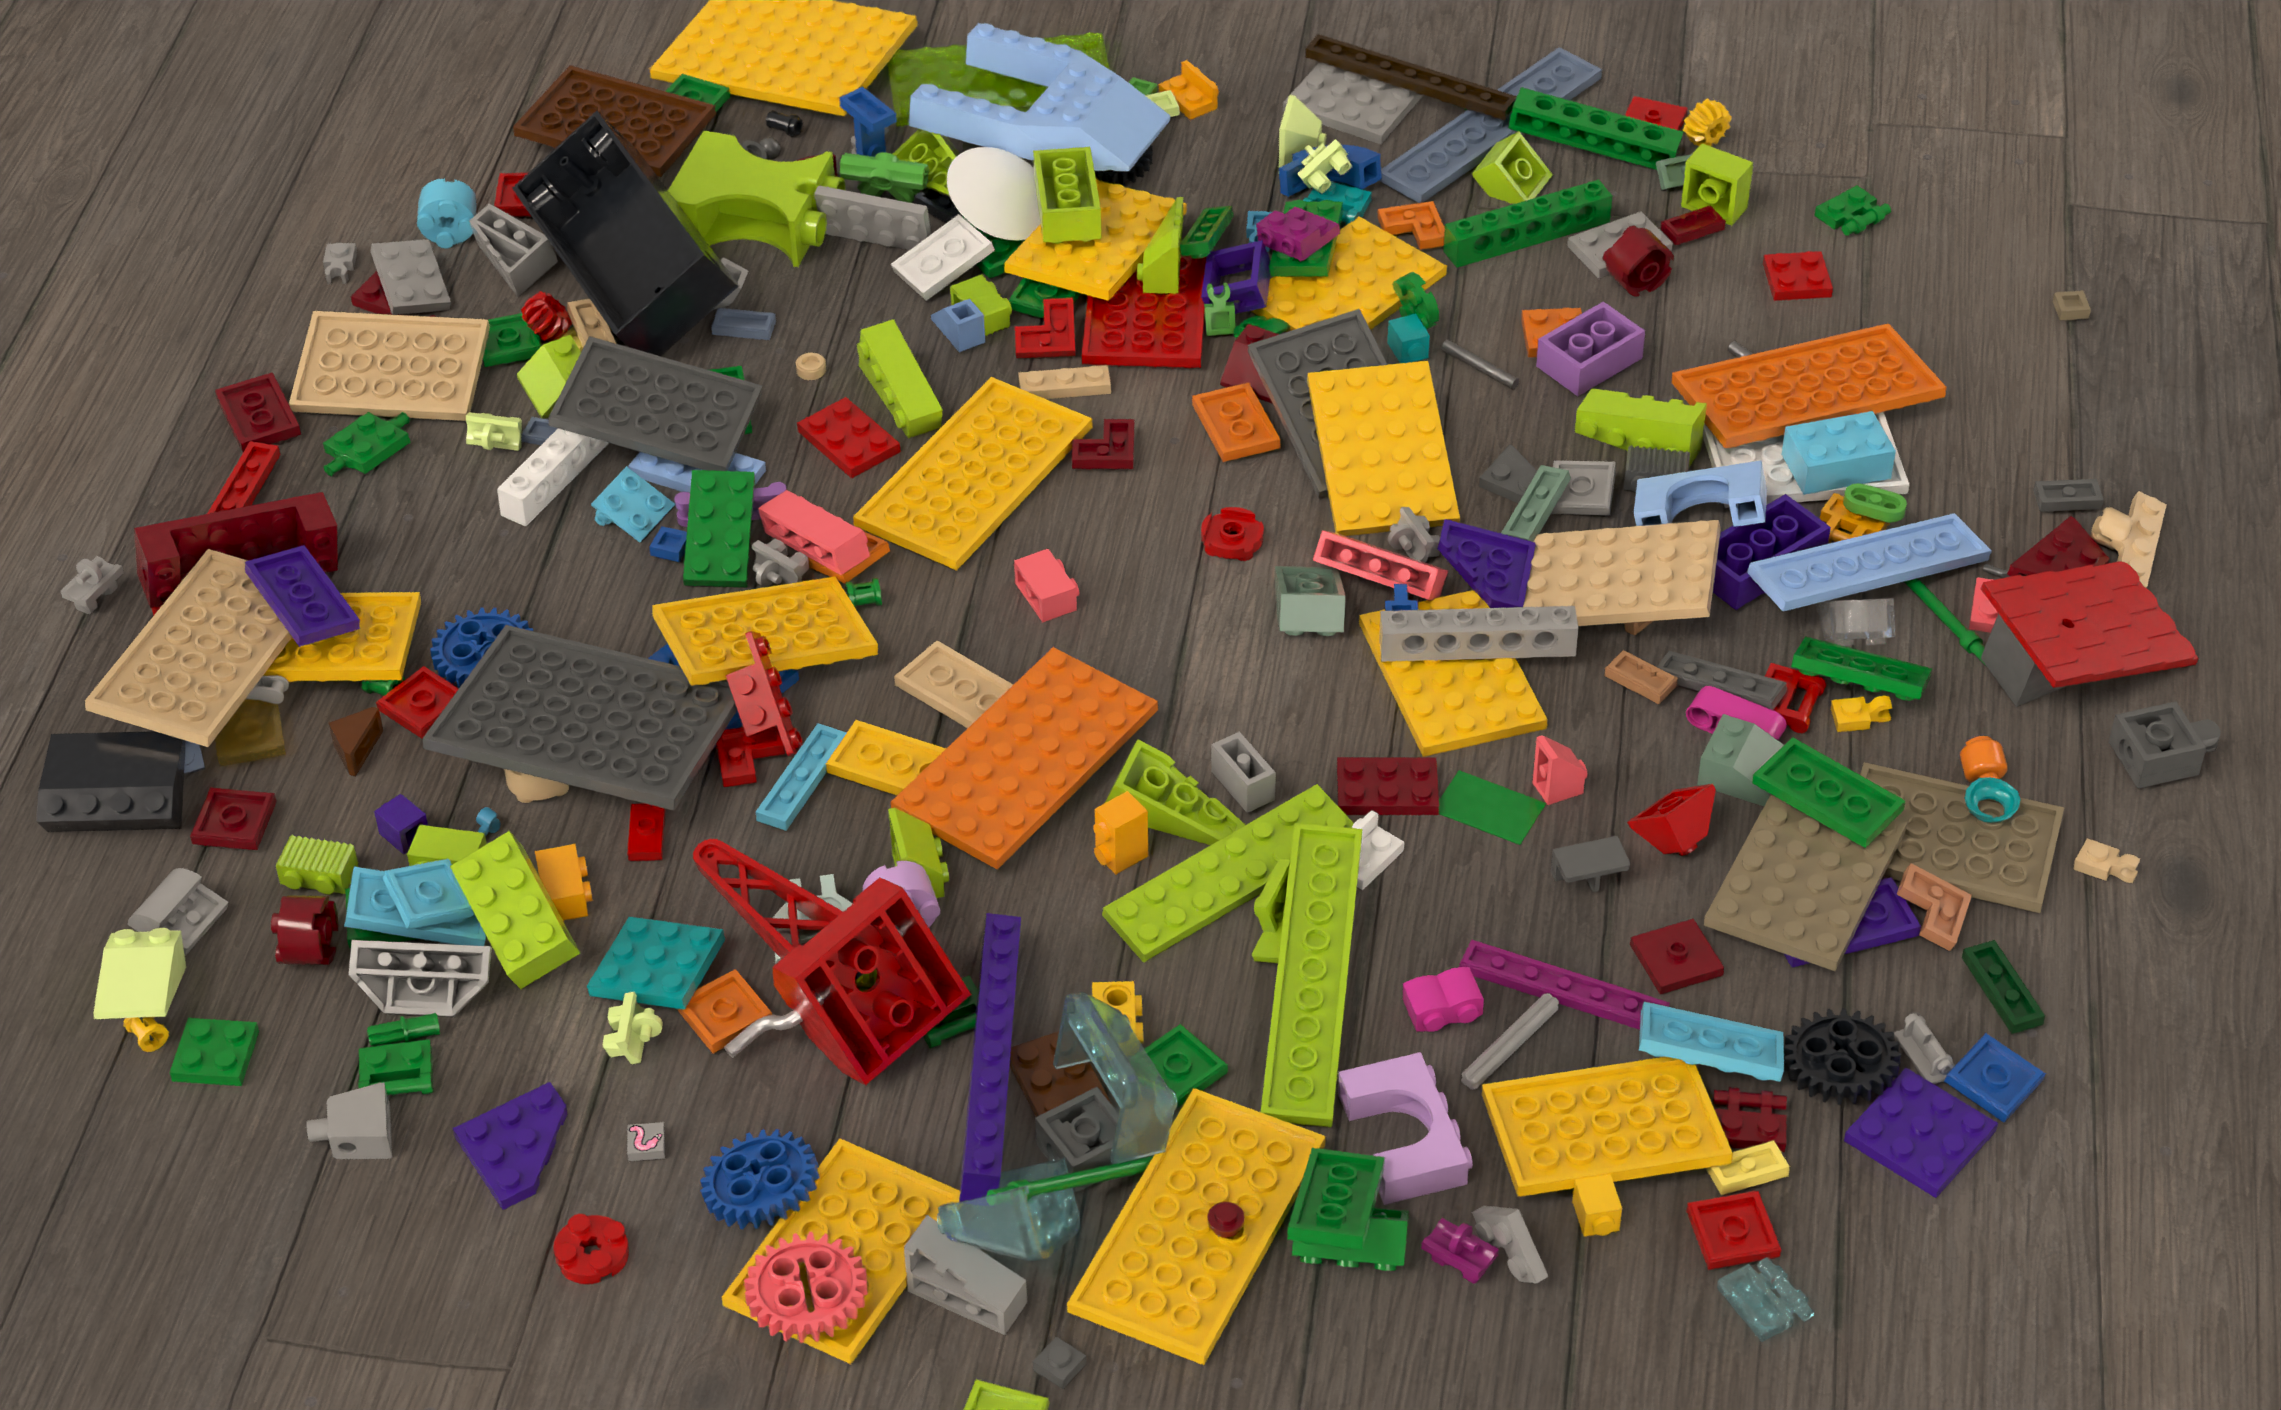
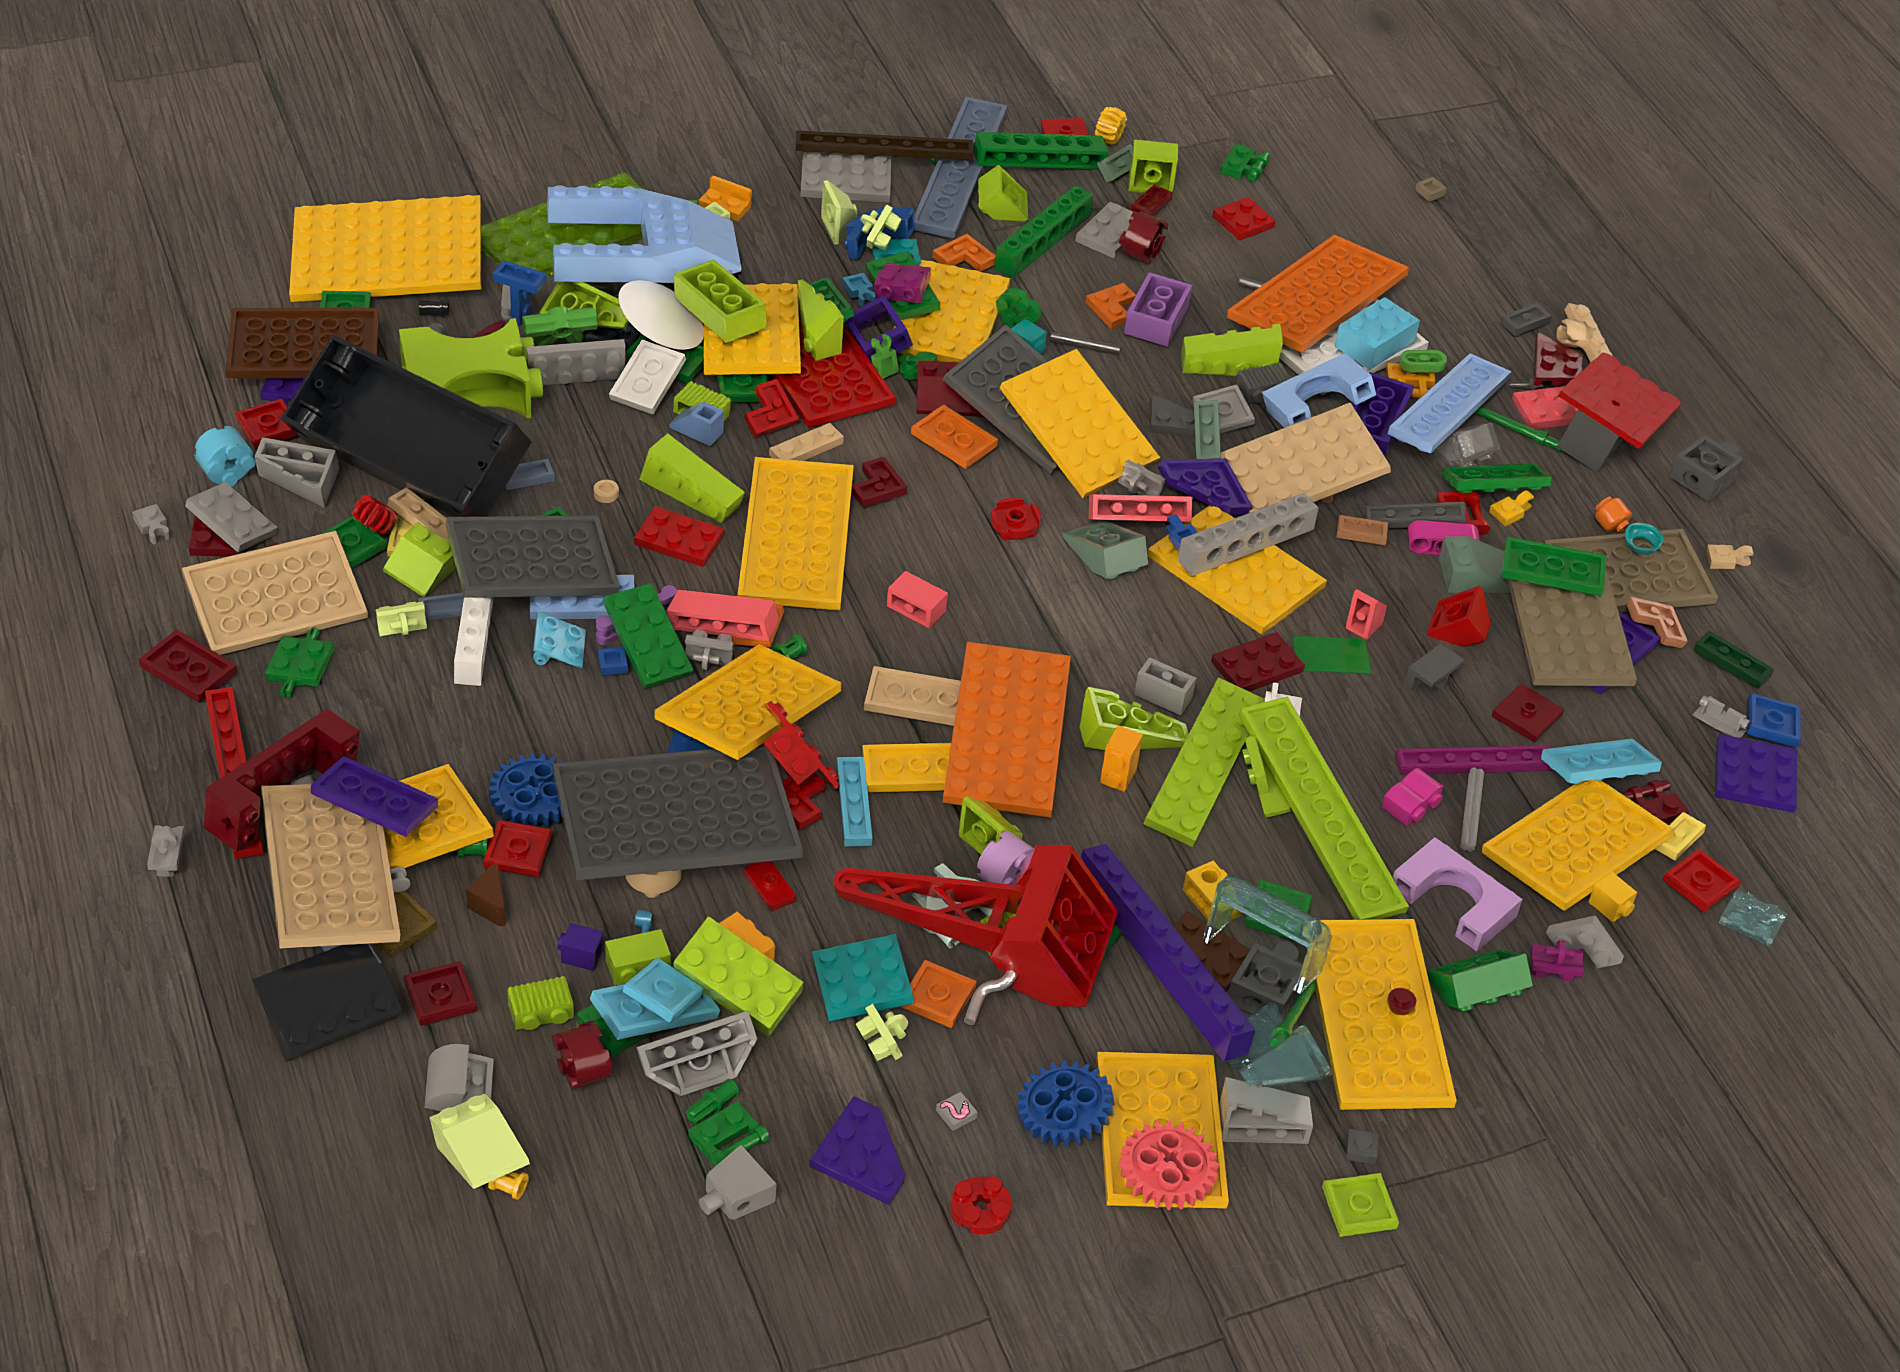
camera: 35 degrees left, 0 degrees up
(214, 1051) = (574, 1178): green plate -> none
(1336, 1199) = (1476, 955): green plate -> none
(1841, 1056) = (1680, 740): black gear -> none

